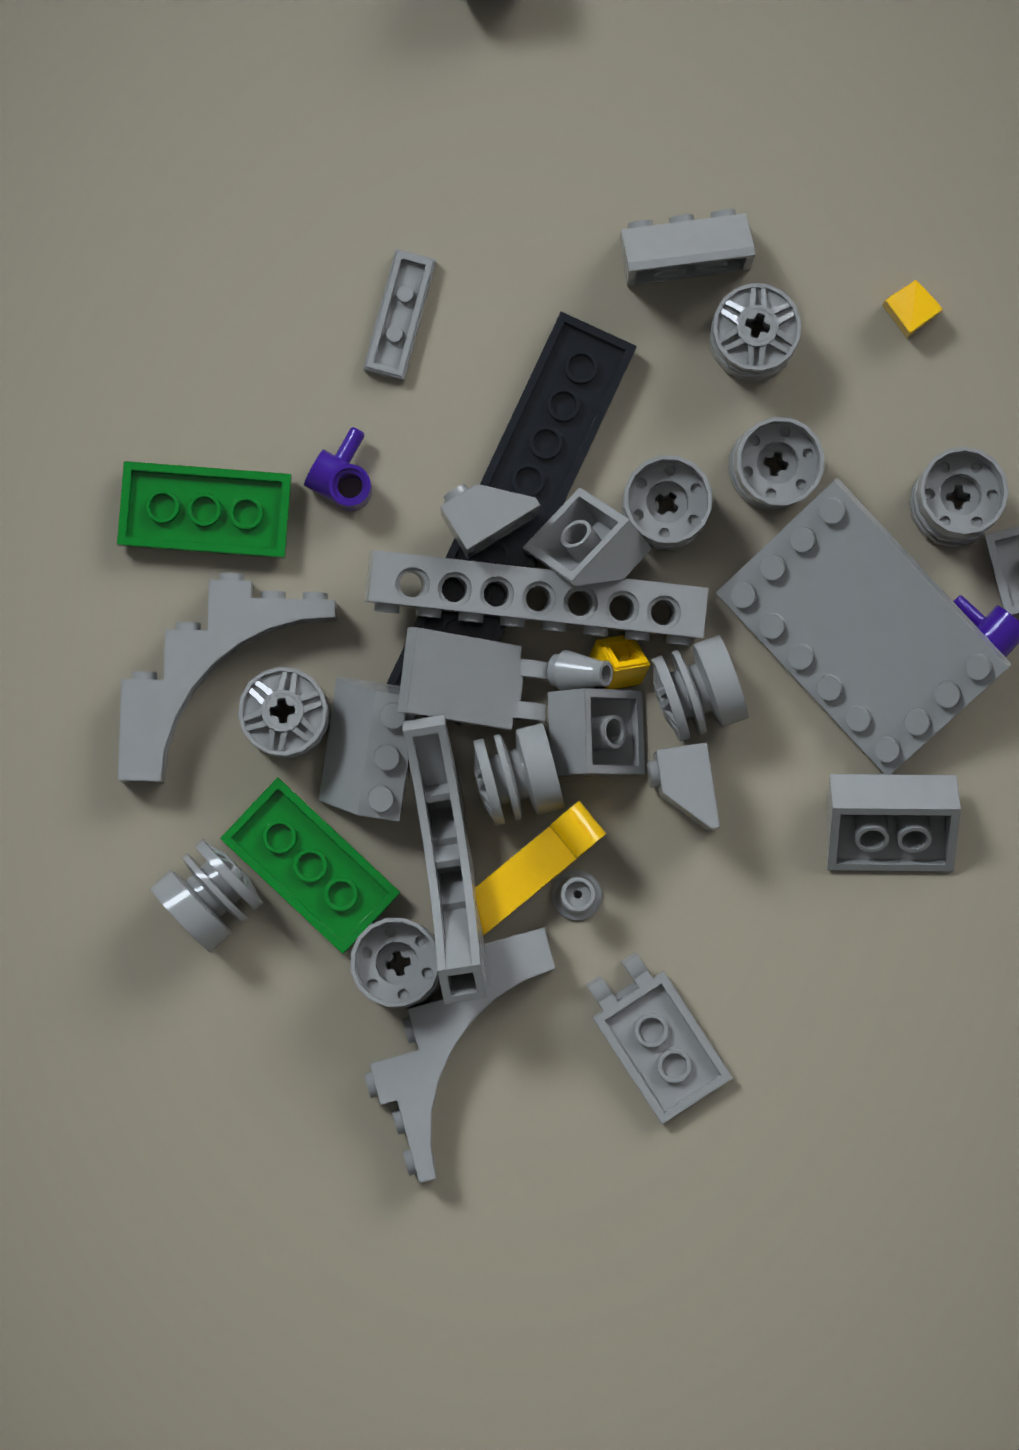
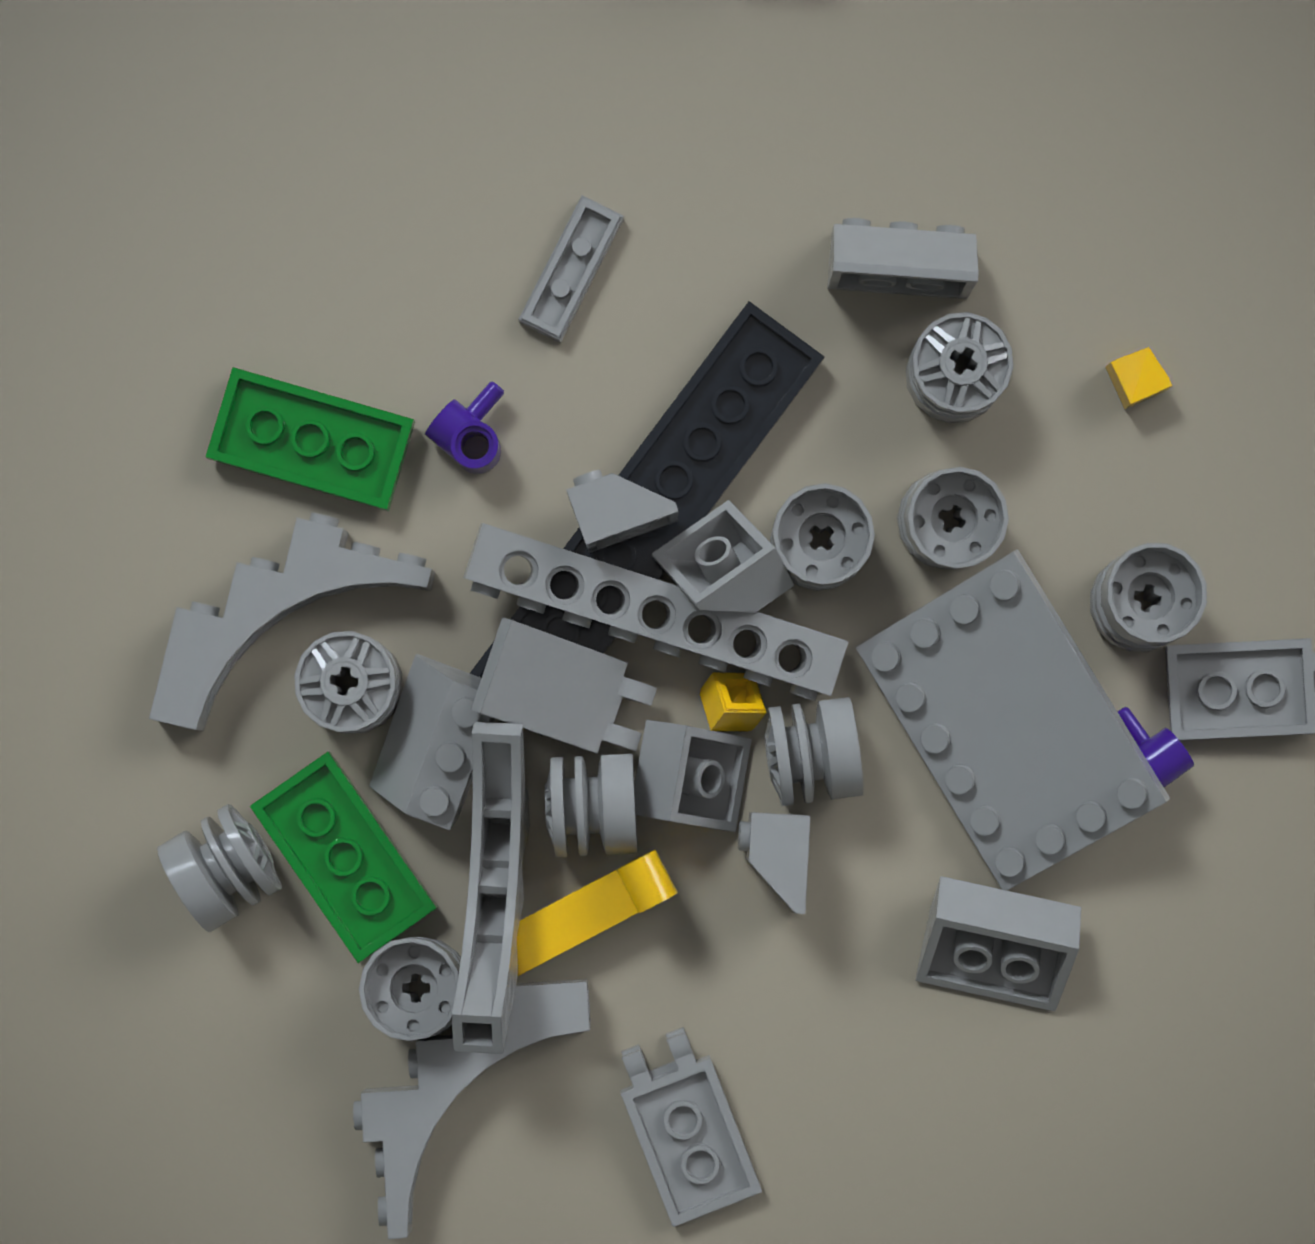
camera: 15 degrees right, 0 degrees up
(576, 895) = (632, 950): light grey piece -> none
(578, 671) = (682, 703): light grey cone -> none

